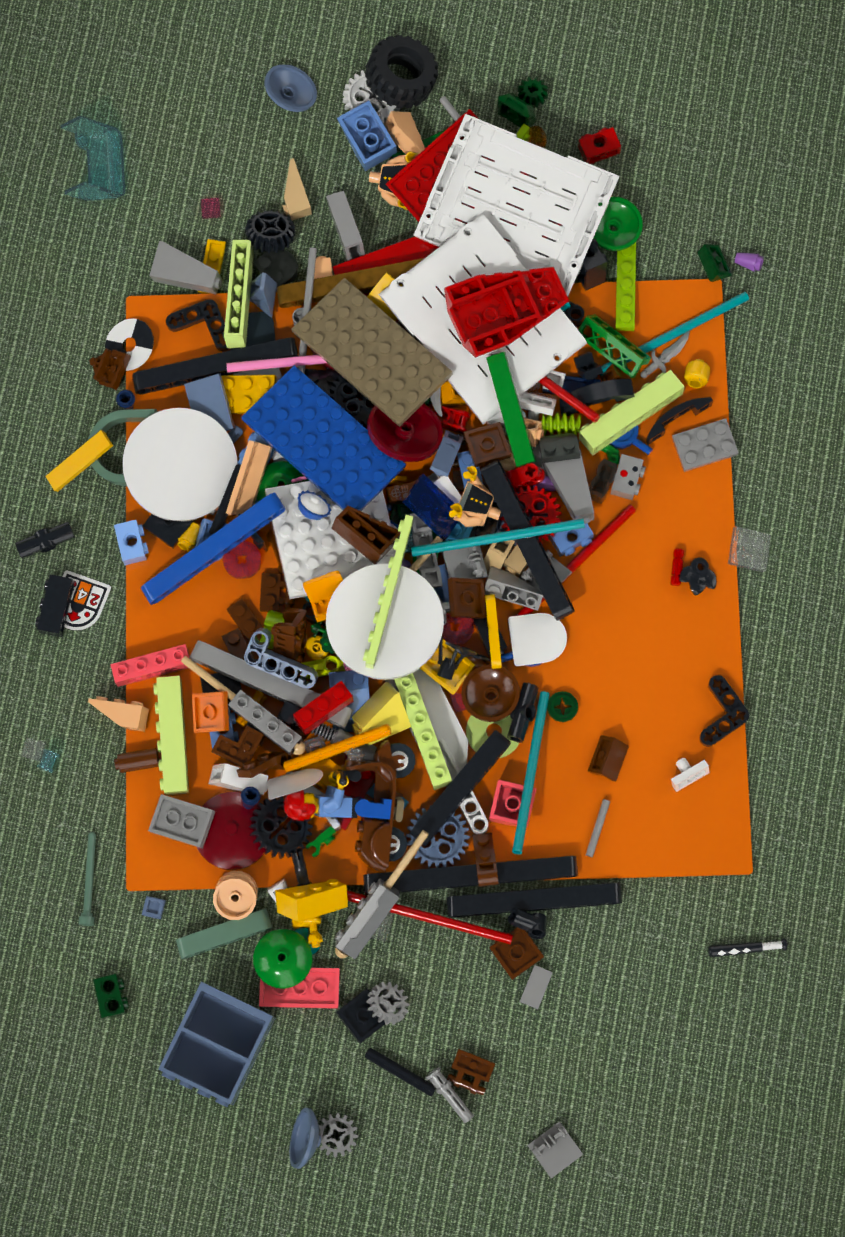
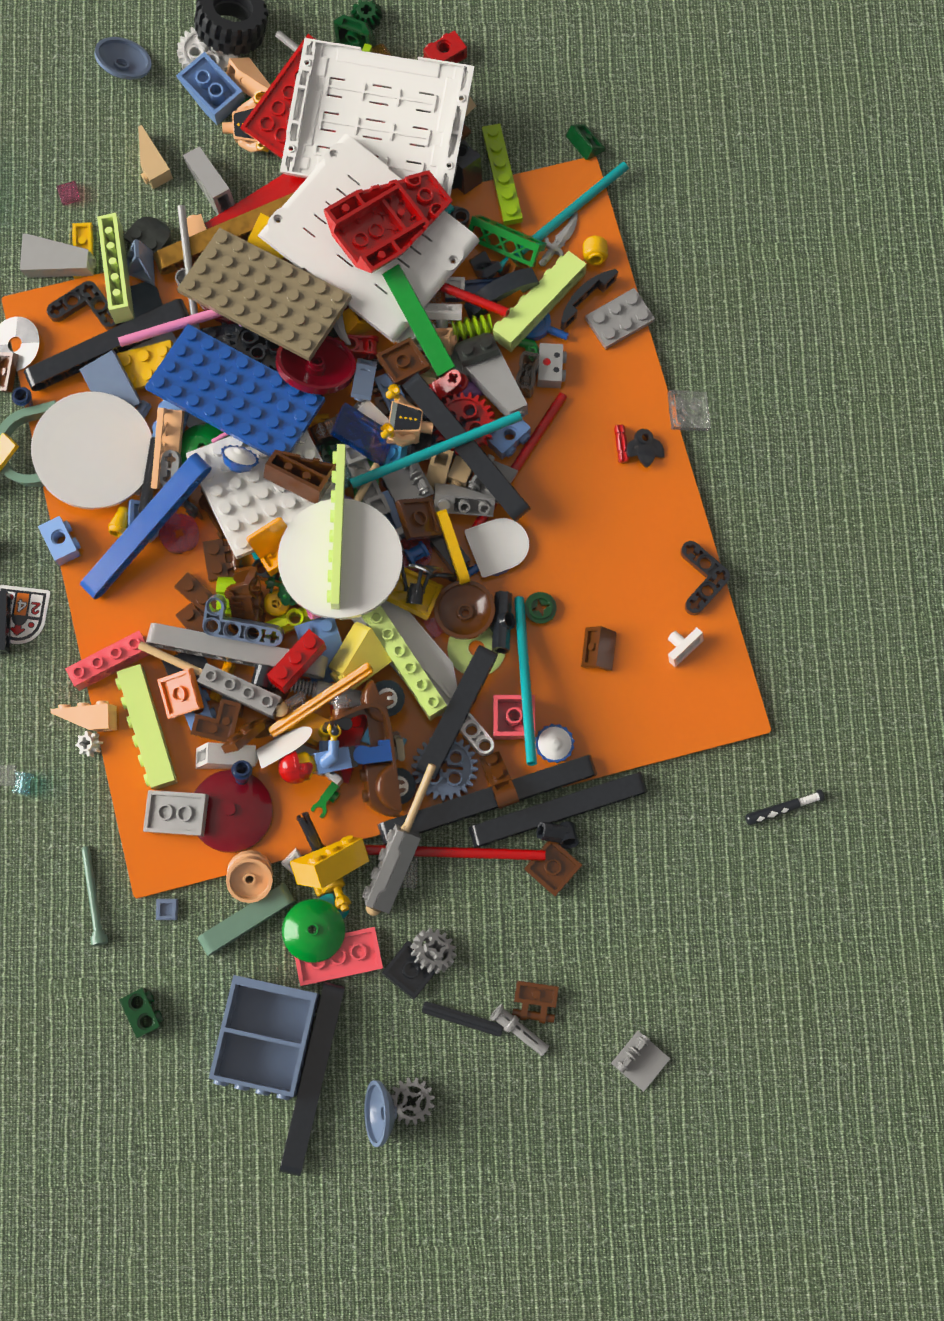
camera: 20 degrees left, 0 degrees up
(111, 736) = (83, 743): none -> white gear
(137, 760) = (115, 761): reddish brown brick -> none
(166, 530) = (94, 520): black plate -> none
(243, 496) = (165, 465): none -> light grey beam
(250, 1093) = (312, 1079): none -> black beam
(275, 231) = (134, 201): black gear -> none
(292, 838) = (265, 785): black gear -> none
(458, 629) = (416, 552): none -> blue bush
(536, 987) = (581, 898): light grey tile -> none
(545, 837) = (554, 743): none -> white piece
(597, 828) = (605, 722): light grey piece -> none
(626, 220) = (486, 115): green dish -> none
(749, 260) = (619, 132): medium lavender cone -> none

